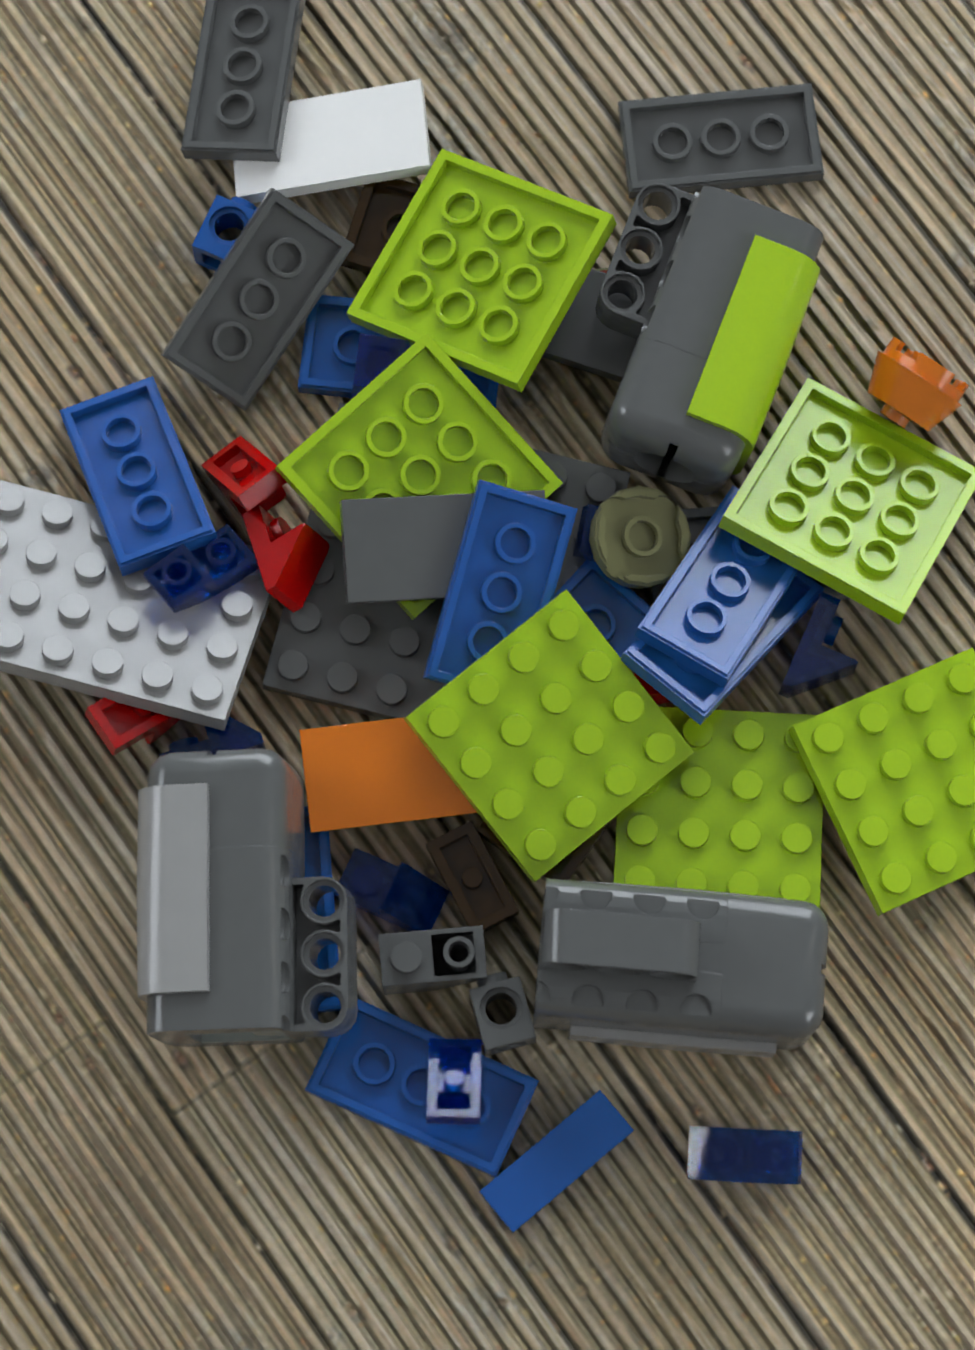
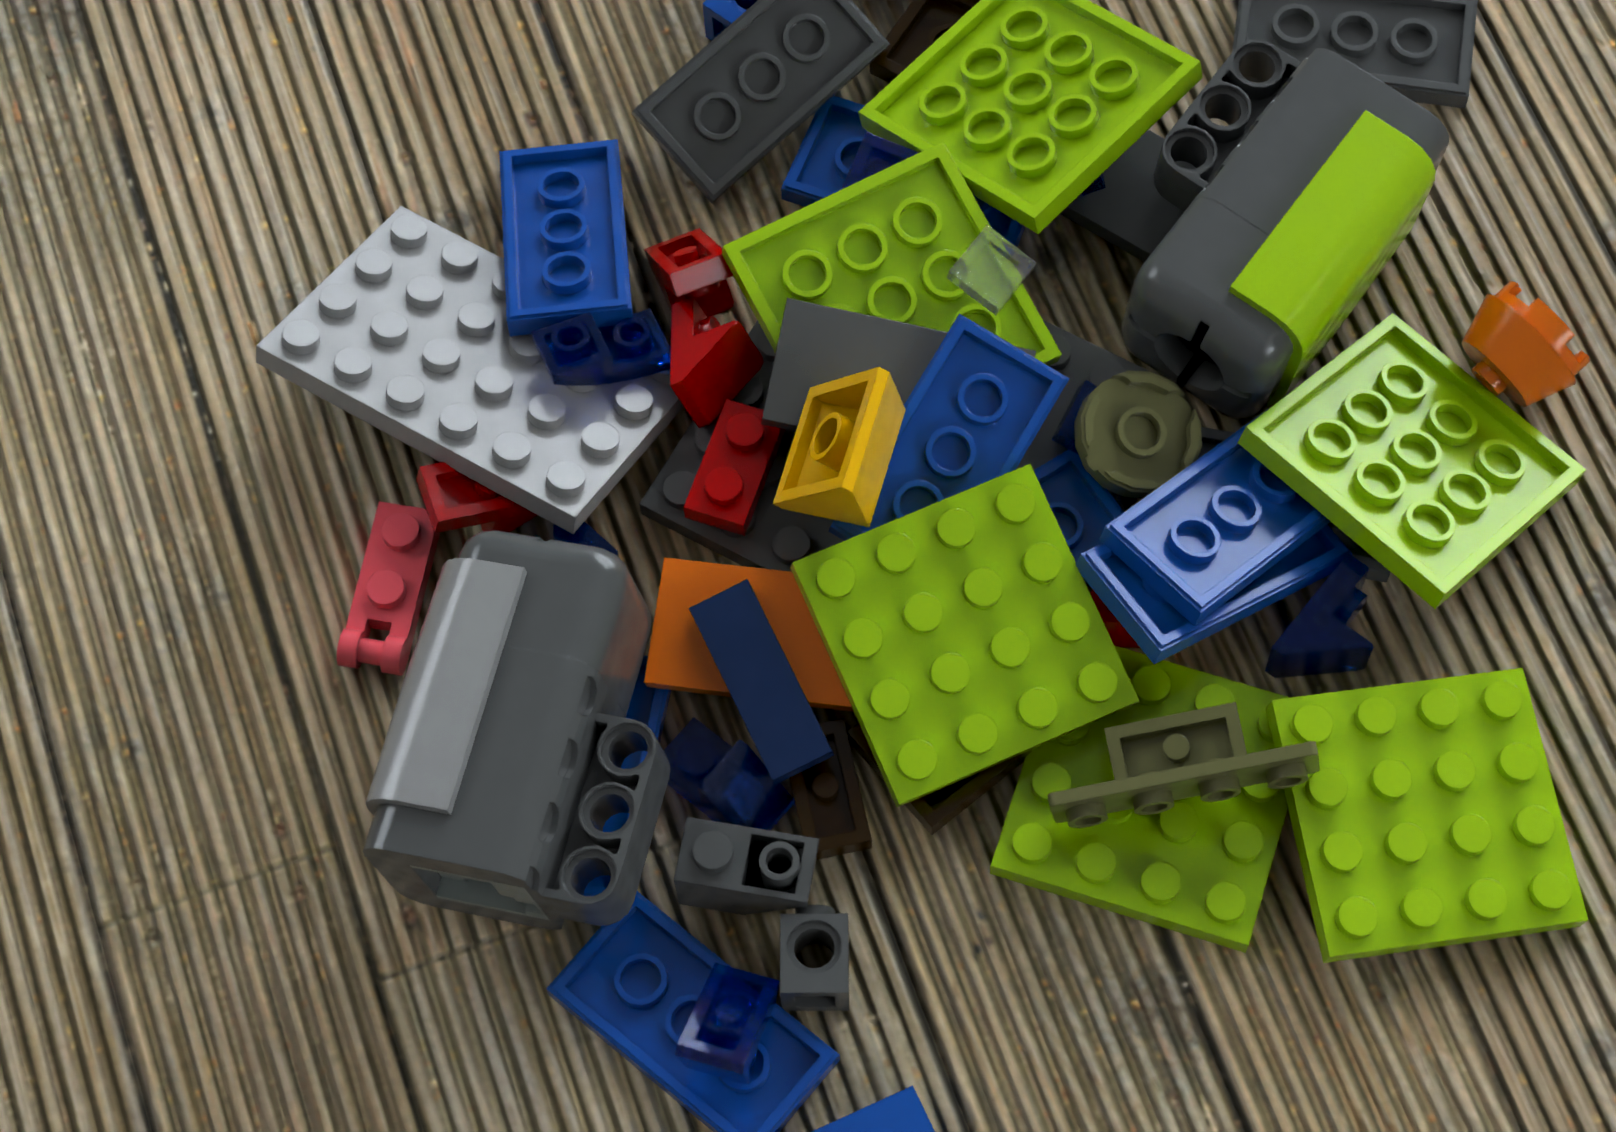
camera: 20 degrees right, 10 degrees down
(85, 802) = (389, 589): none -> coral plate
(330, 640) = (733, 469): none -> red plate
(403, 811) = (761, 682): none -> dark blue tile
(417, 616) = (842, 448): none -> yellow slope
(492, 431) = (991, 270): none -> clear tile
(679, 968) = (1048, 951): dark grey piece -> none
(734, 791) = (1181, 759): none -> olive bracket

